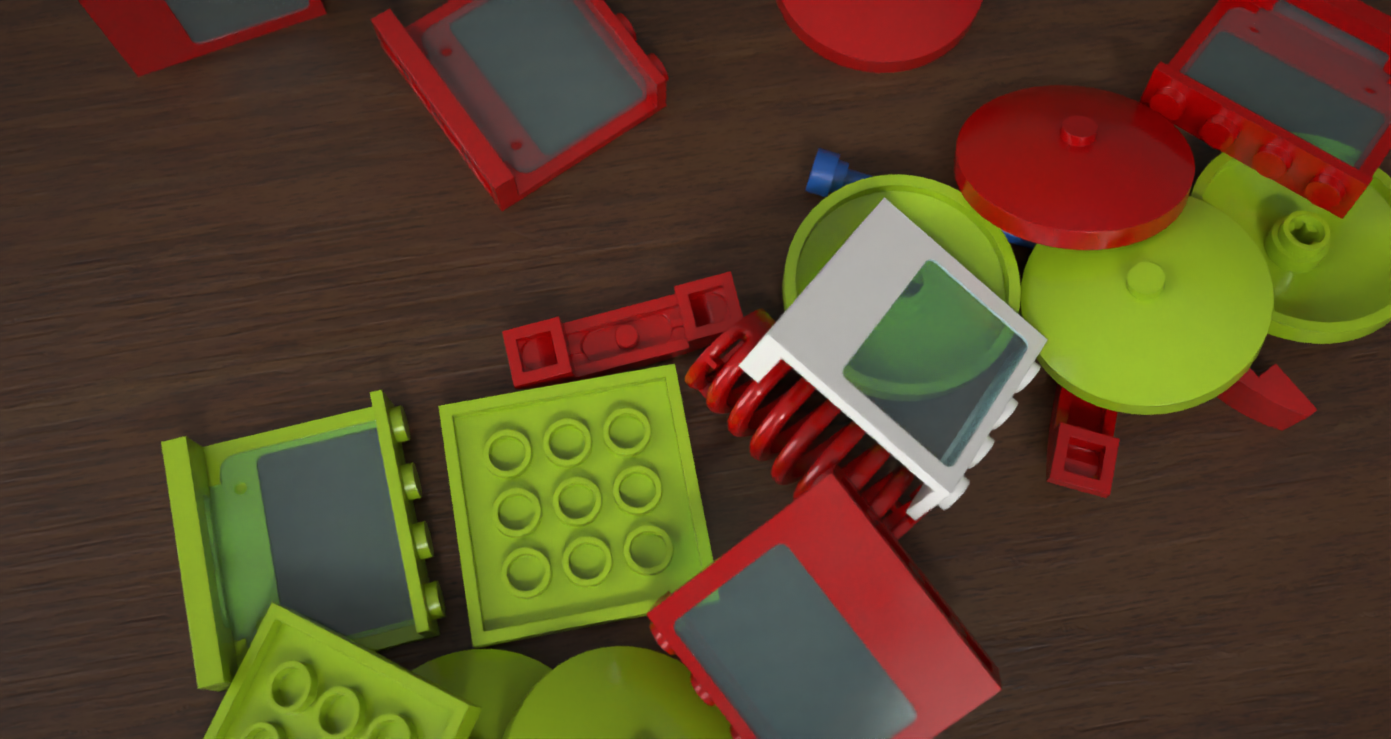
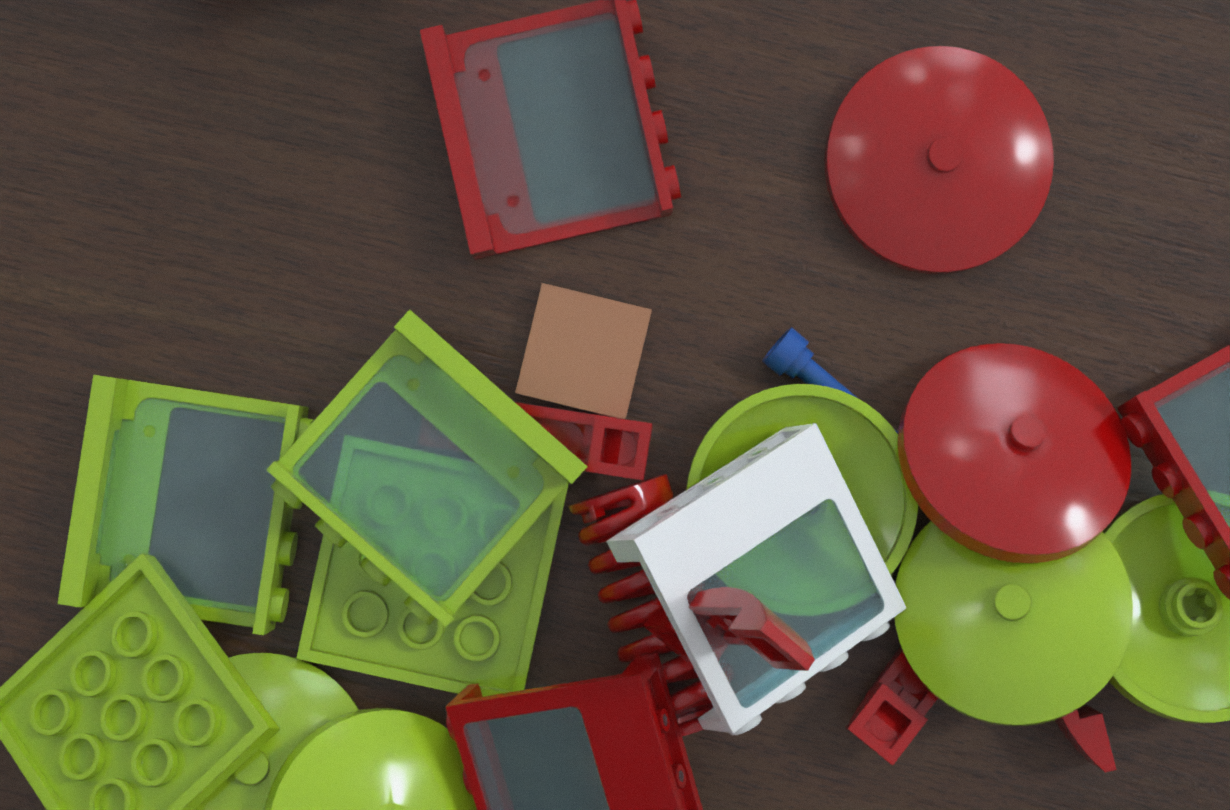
camera: 30 degrees right, 15 degrees up
(532, 395) = (425, 470): none -> clear light blue panel
(635, 246) = (583, 351): none -> nougat tile
(910, 361) = (745, 623): none -> red slope

